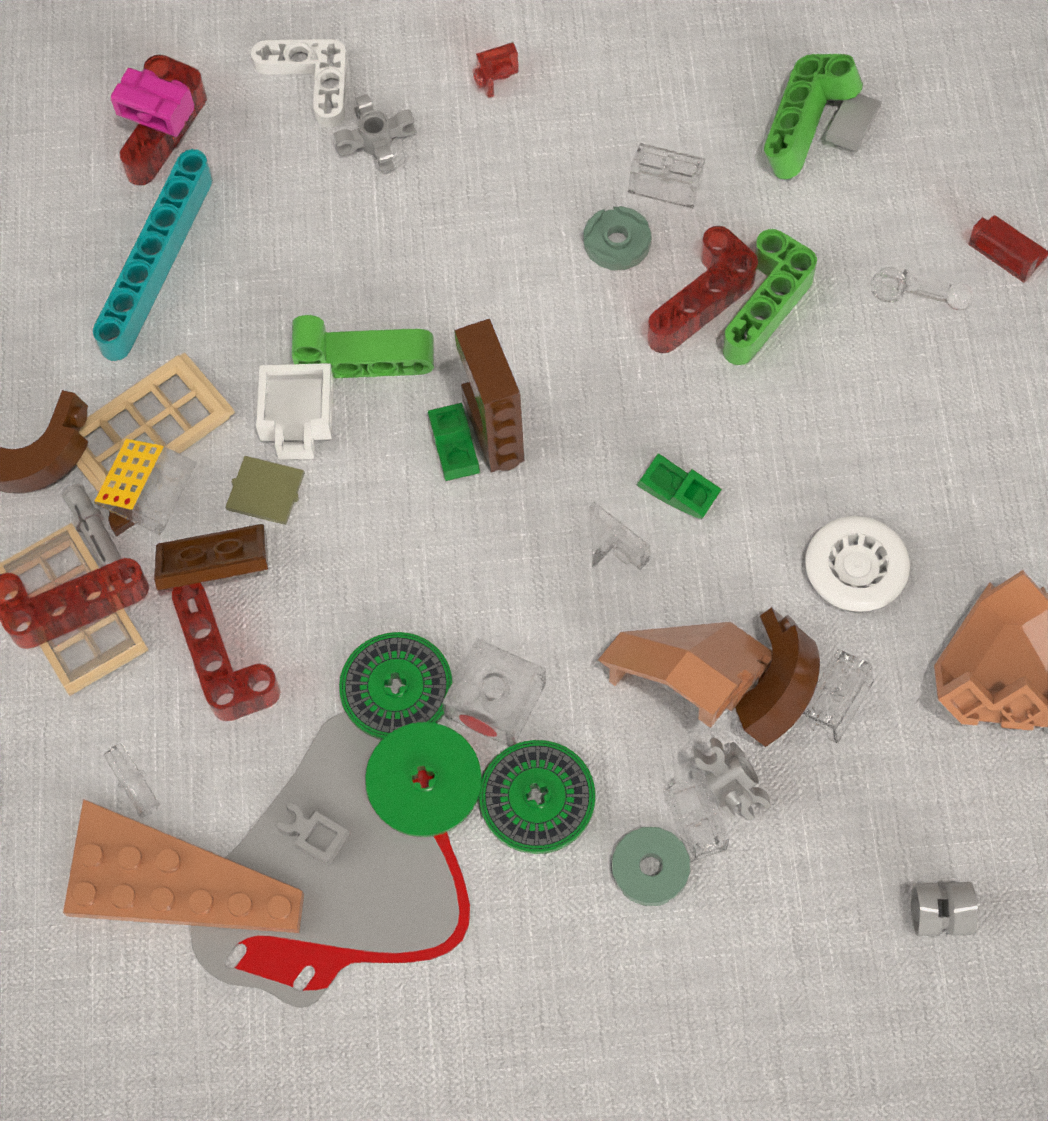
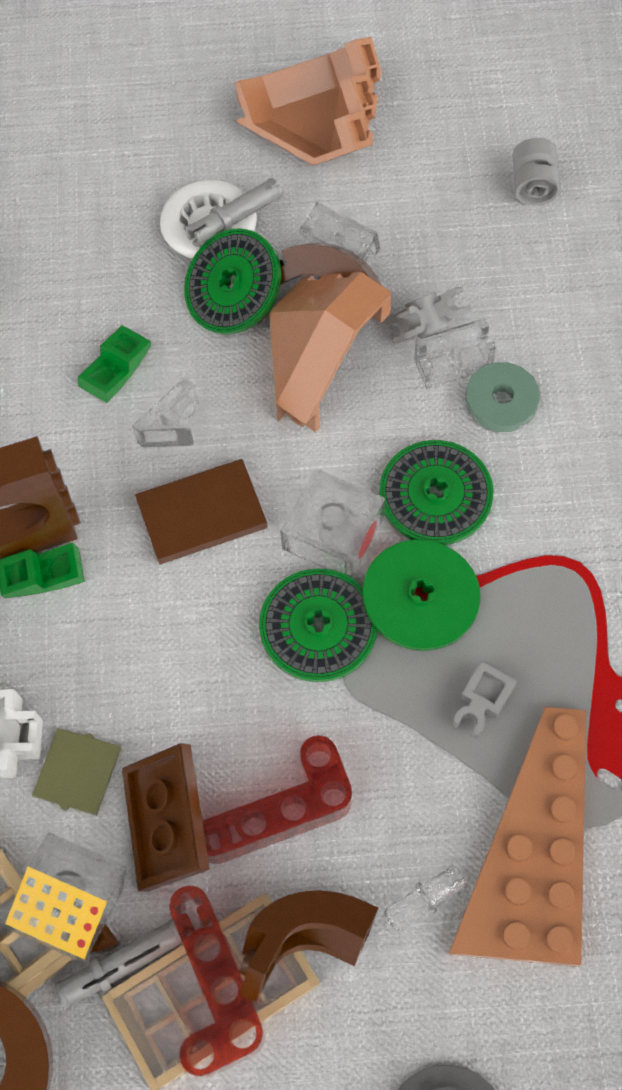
camera: 90 degrees left, 0 degrees up
(110, 665) = (301, 922): none -> reddish brown arch
(516, 577) = (201, 511): none -> reddish brown tile
(796, 590) = (255, 281): none -> piece
(846, 571) = (225, 217): none -> light grey pin

